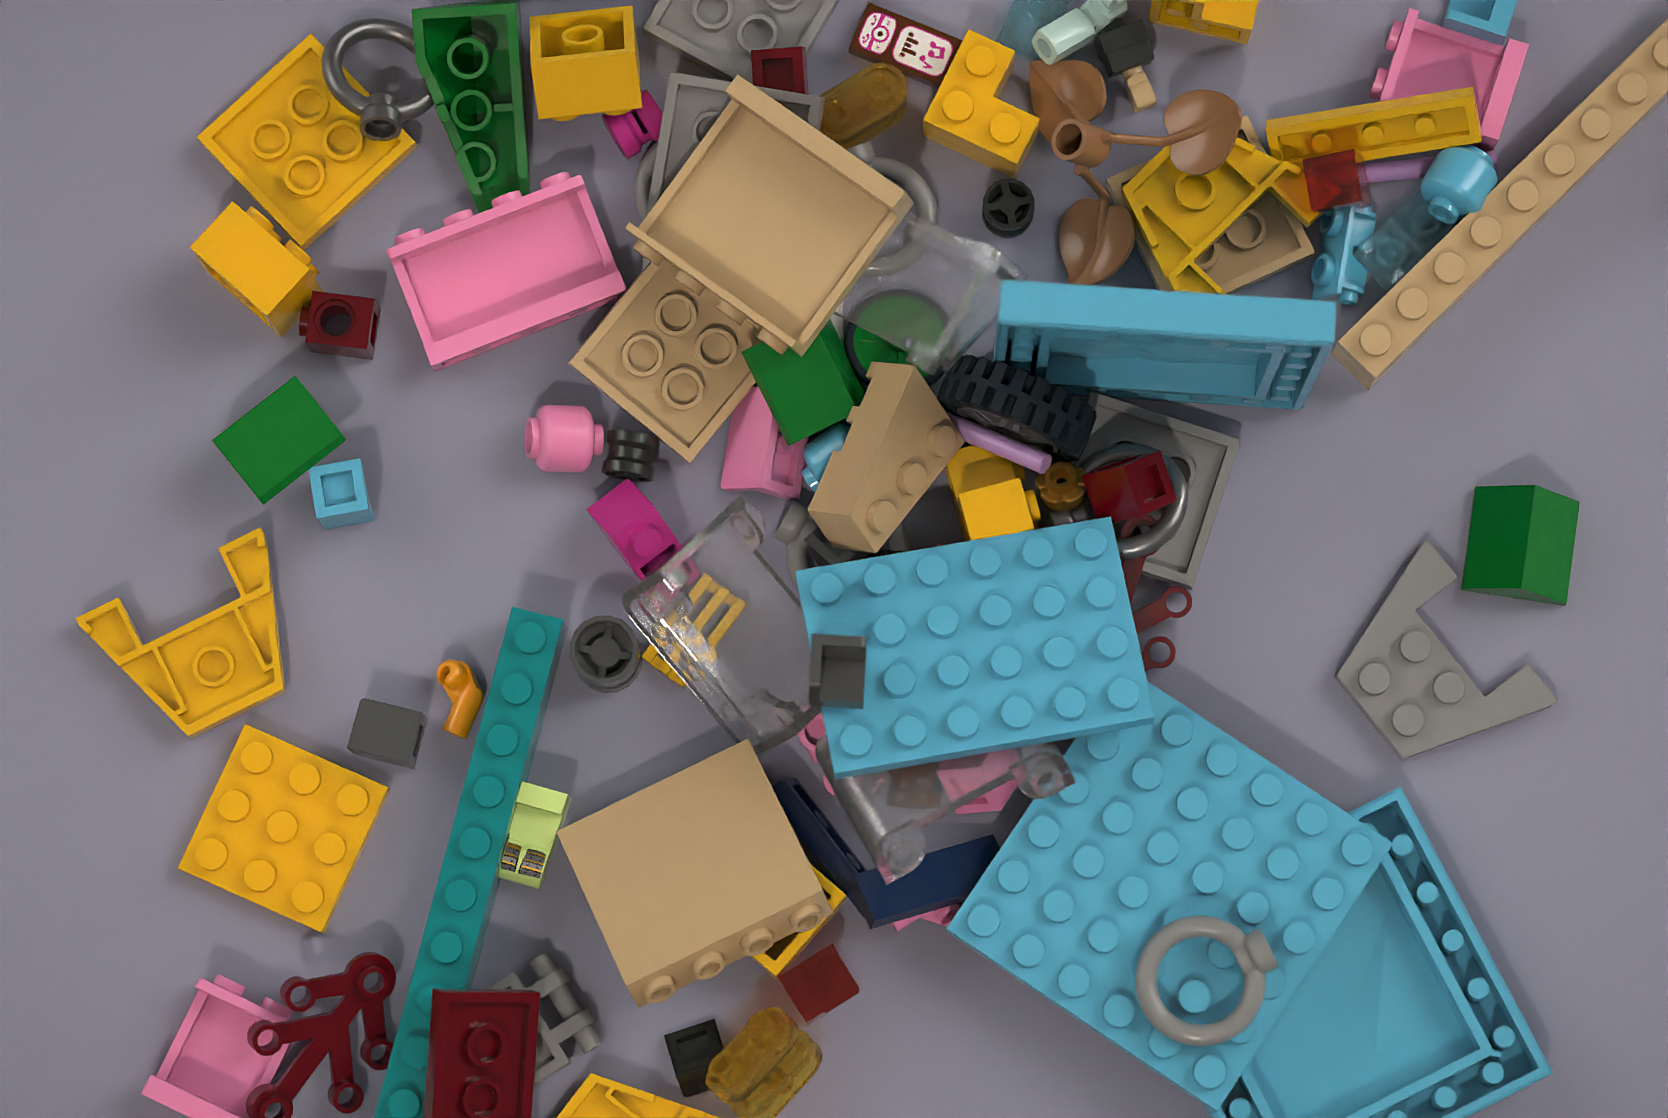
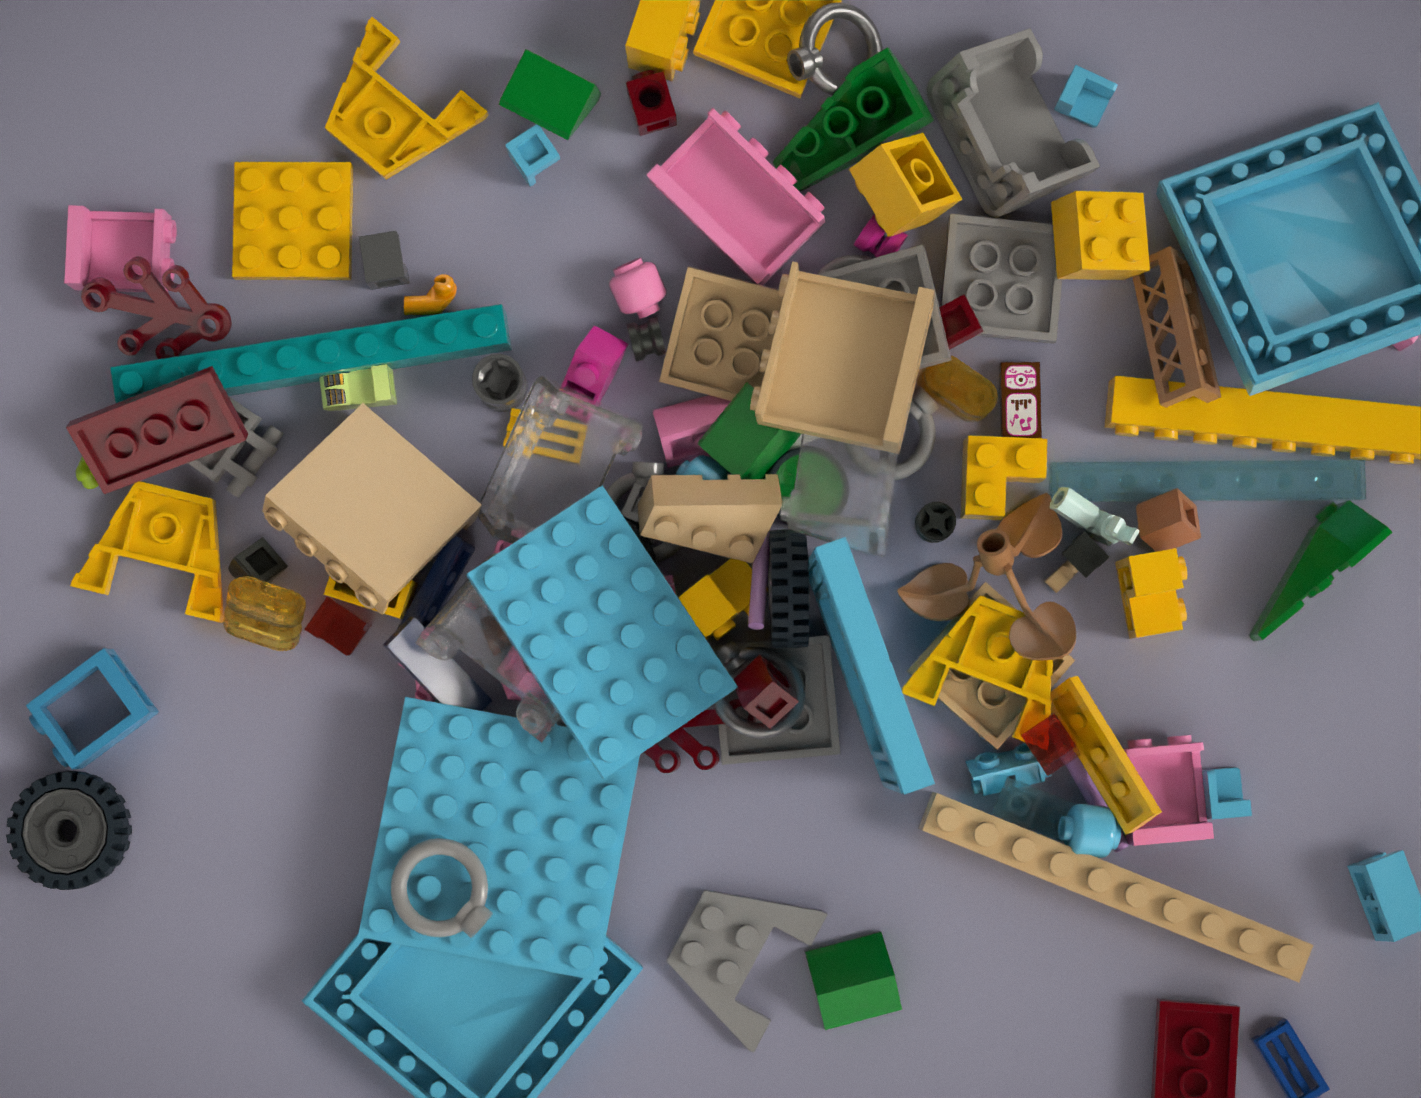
camera: 65 degrees right, 5 degrees up
(837, 671) = (535, 544): dark grey panel -> none
(1064, 495) = (740, 648): pearl gold plate -> none

